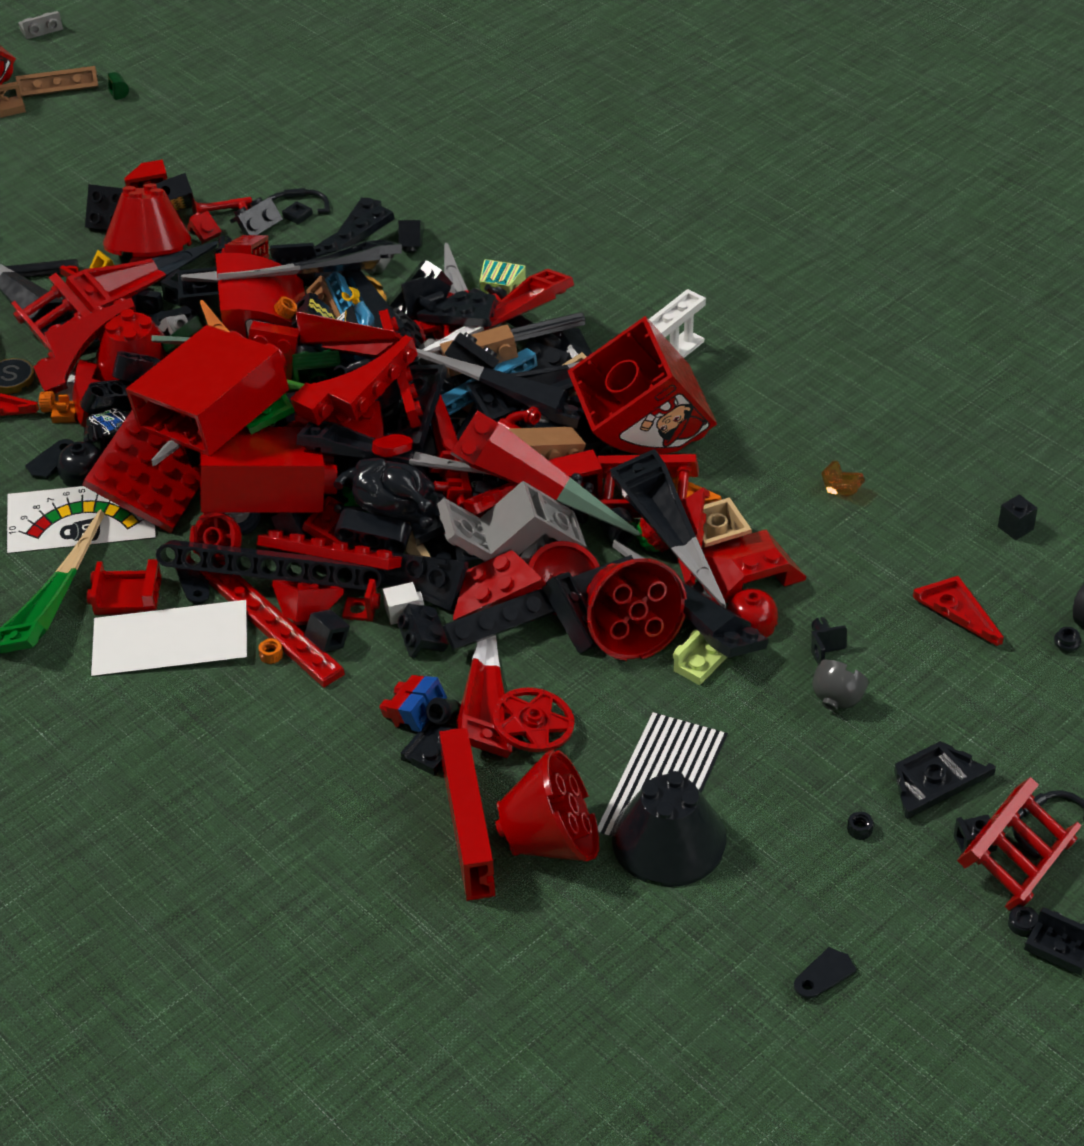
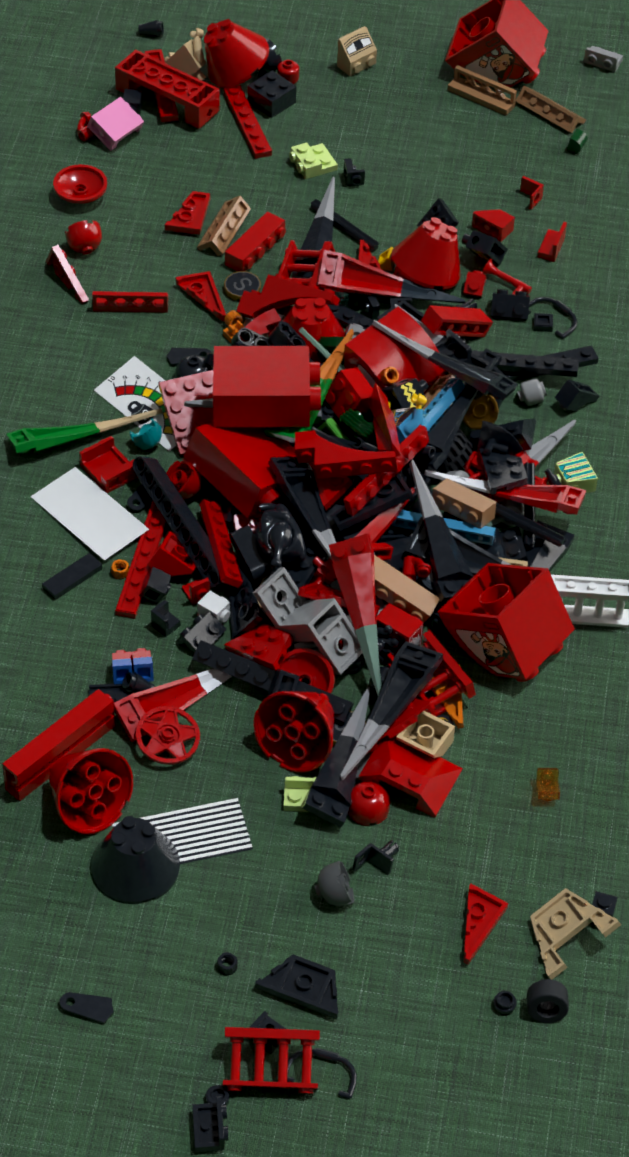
camera: 50 degrees right, 5 degrees up
(123, 537) = (148, 435): none -> teal hair
(137, 137) = (533, 189): none -> red bracket
(216, 159) = (552, 243): none -> red panel
(238, 694) = (72, 576): none -> black tile
(377, 650) = (163, 620): none -> black panel
(392, 445) = (316, 512): red tile -> none
(465, 349) = (442, 496): black bracket -> none
(1010, 548) = (562, 920): none -> tan wing

